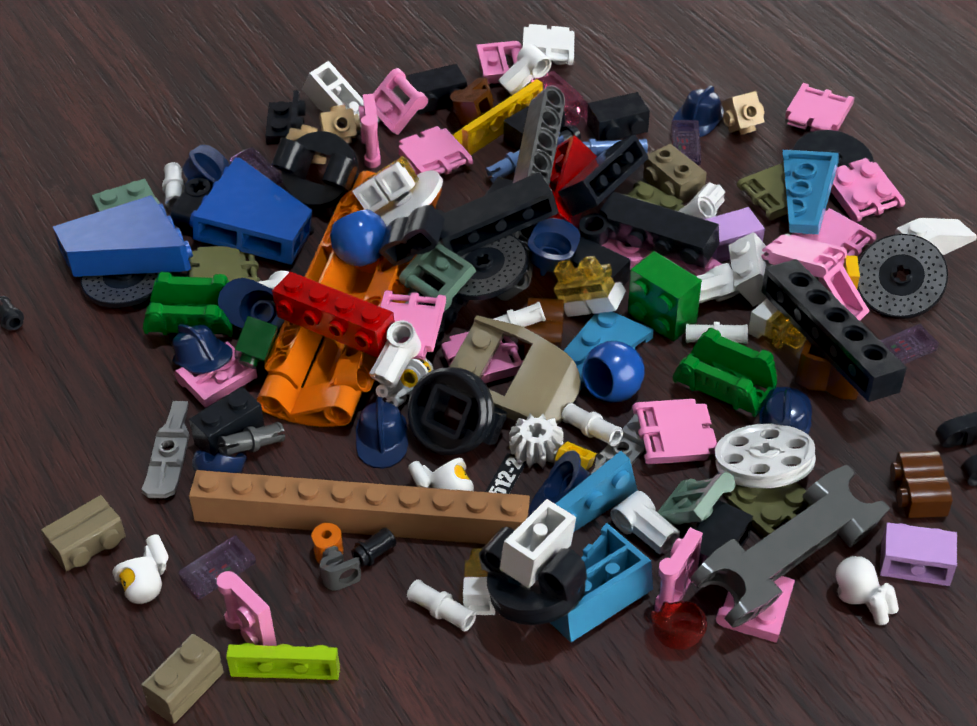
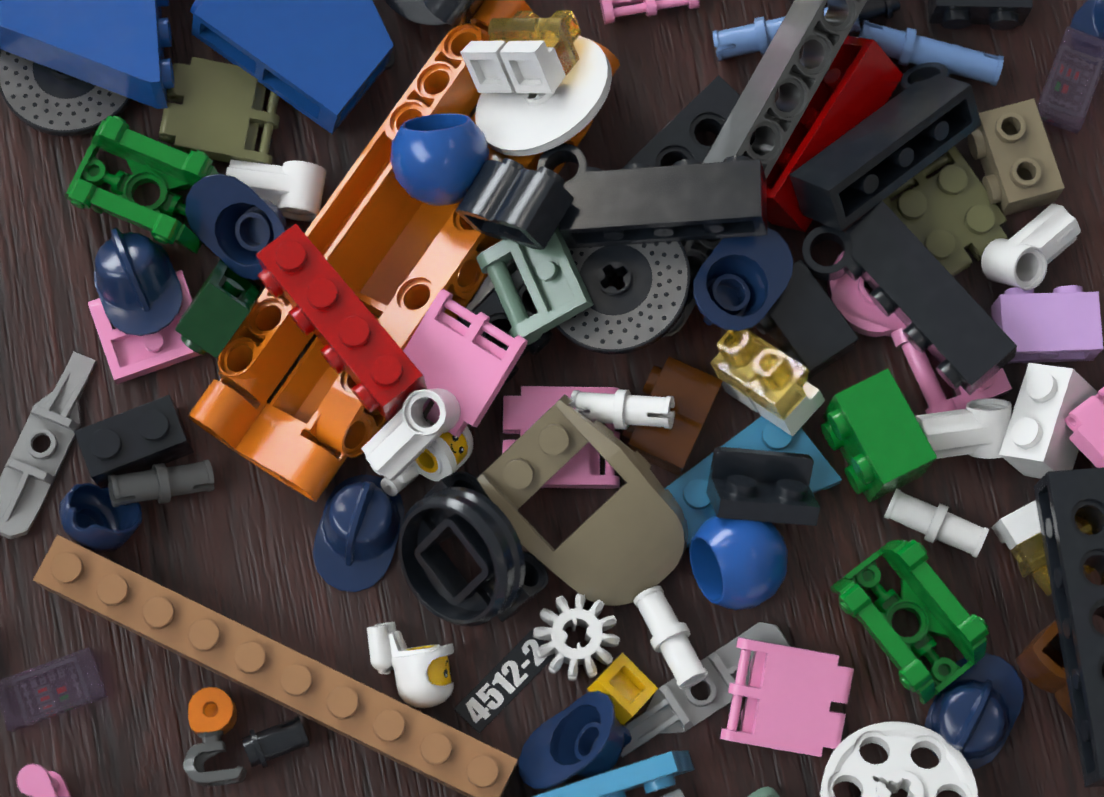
camera: 15 degrees right, 30 degrees up
(618, 327) = (762, 486): none -> black bracket

